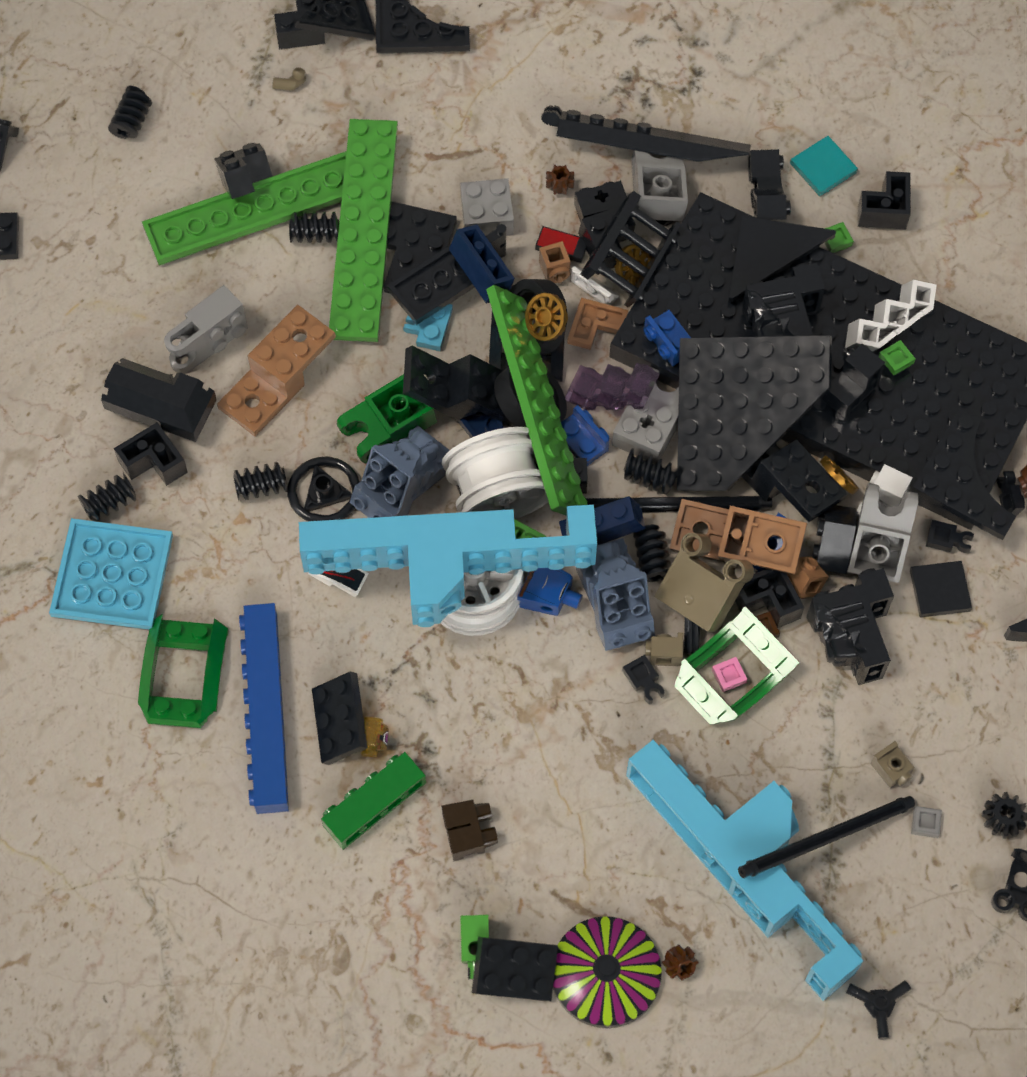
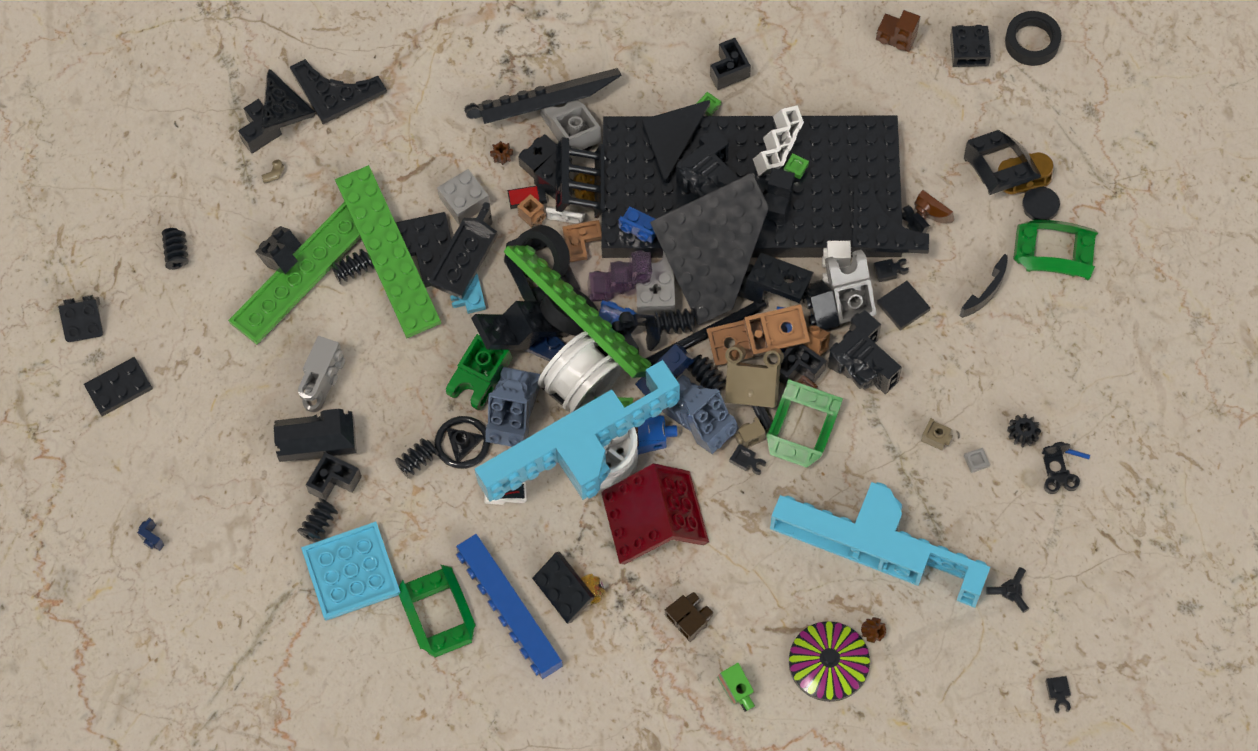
camera: 25 degrees left, 0 degrees up
(276, 370) = (384, 377): medium nougat bracket -> none
(373, 800) = (616, 629): green brick -> none
(480, 260) = (485, 235): dark blue brick -> none
(499, 681) = (652, 510): none -> dark red bracket
(514, 969) = (772, 689): black plate -> none
(546, 316) = (554, 250): pearl gold wheel -> none
(591, 446) = (628, 323): none -> black piece
(729, 674) = (800, 429): bright pink plate -> none
(767, 193) = (645, 93): black brick -> none
(823, 165) = (672, 59): teal tile -> none
(825, 837) = (891, 543): black piece -> none
(838, 475) = (801, 263): pearl gold wheel -> none

